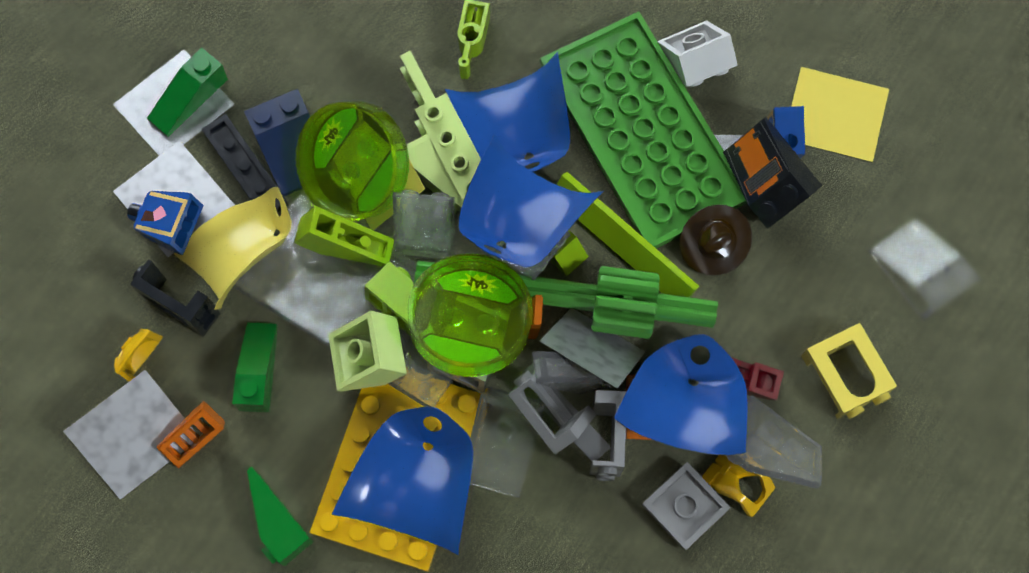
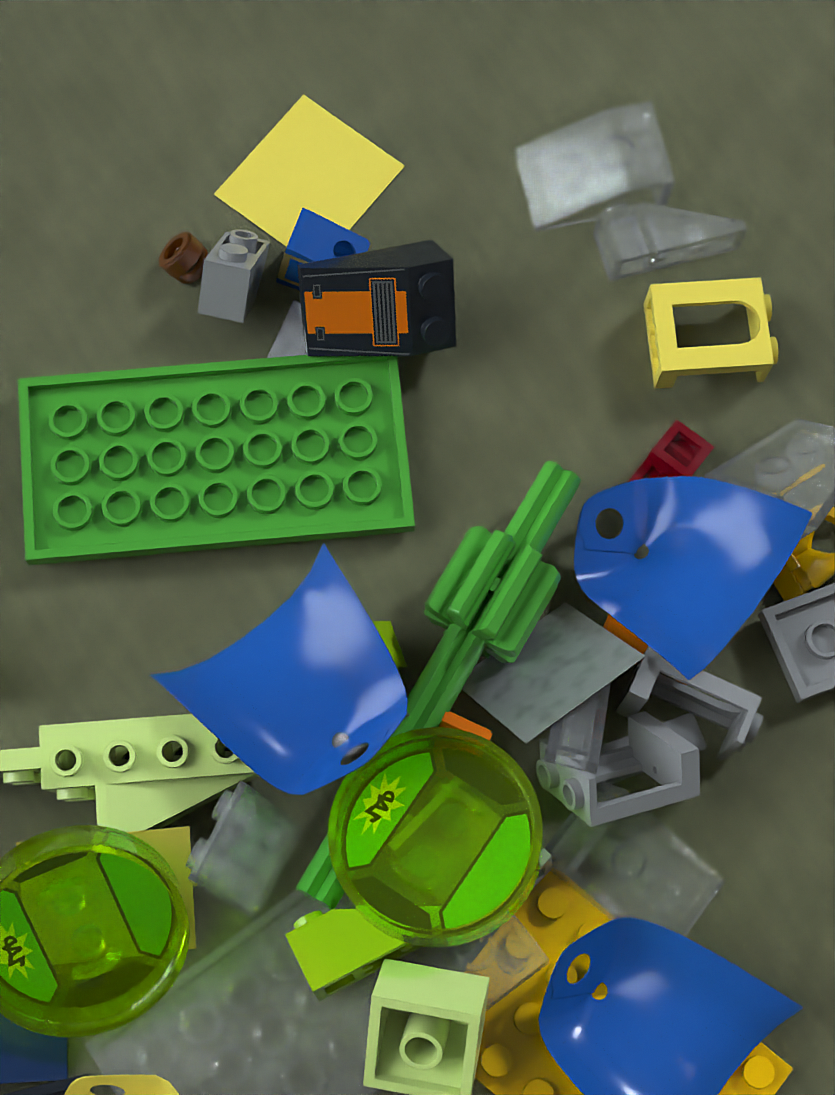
camera: 75 degrees left, 0 degrees up
(342, 238) = (203, 1001): lime slope -> none
(522, 114) = (108, 628): blue piece -> none
(630, 244) = (398, 549): lime tile -> none
(699, 53) = (128, 320): white slope -> none
(716, 240) = (438, 427): dark brown hat -> none
(751, 62) = (181, 255): none -> reddish brown tile
(752, 93) = (232, 275): none -> light grey slope
(895, 317) = (656, 236): none -> clear slope

